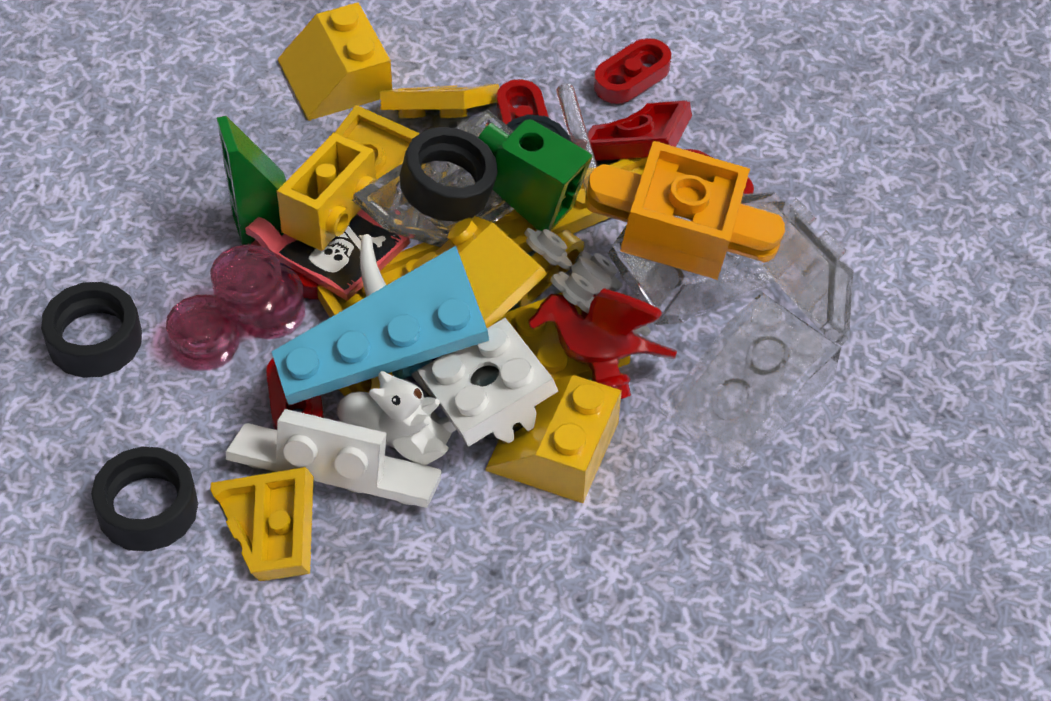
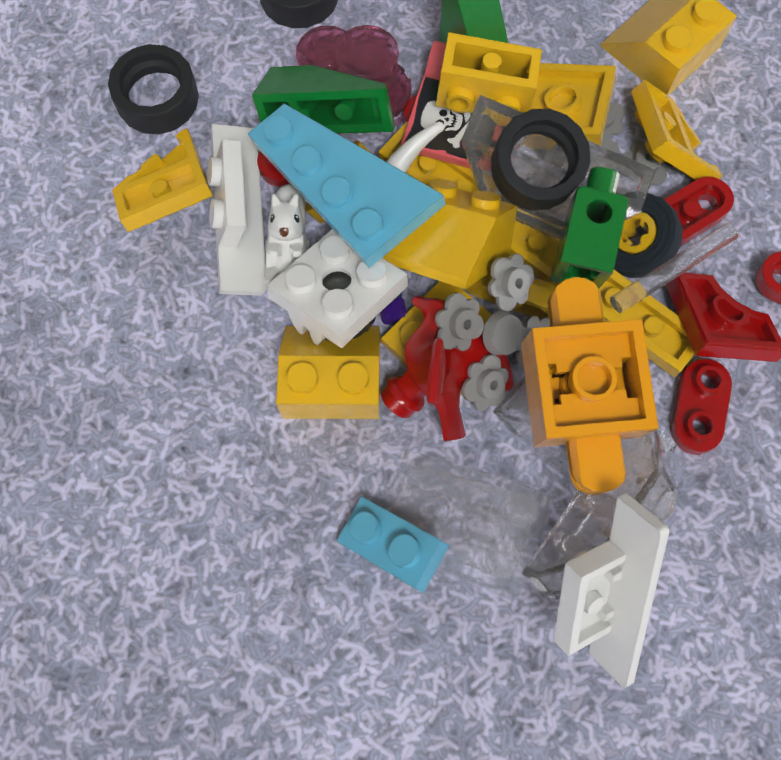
camera: 70 degrees right, 20 degrees up
(241, 359) = (328, 97): none -> green slope
(753, 437) = (393, 544): none -> medium azure plate
(869, 261) = (612, 591): none -> white bracket

